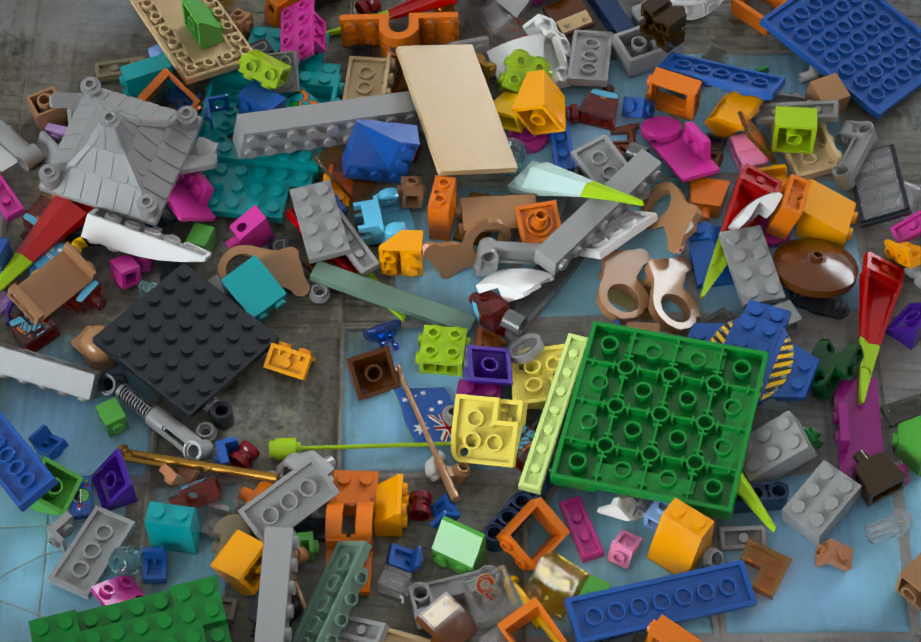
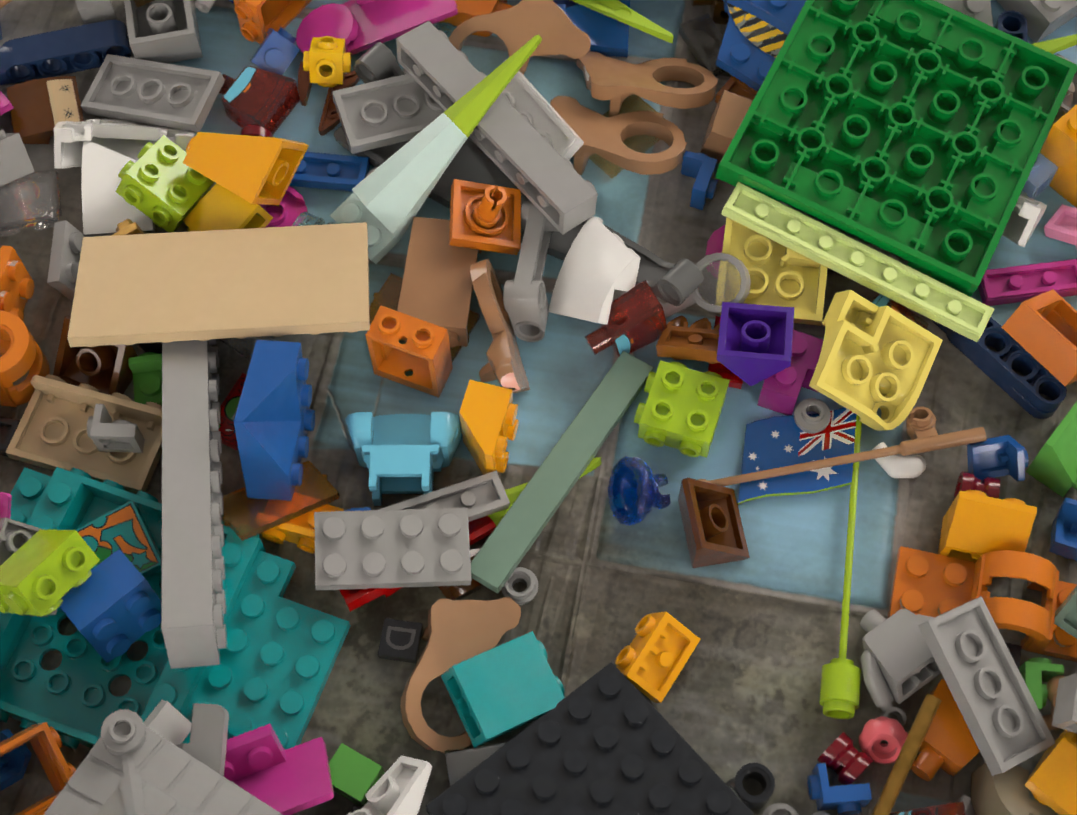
camera: 80 degrees left, 10 degrees up
(212, 108) = (70, 713): blue bracket -> none
(250, 229) = (362, 667): dark pink torso -> none
(260, 465) = (882, 729): none -> coral plate
(367, 87) = (115, 435): none -> light grey bracket
(411, 191) = (348, 395): medium nougat brick -> none
(632, 128) = (327, 61): none -> yellow brick

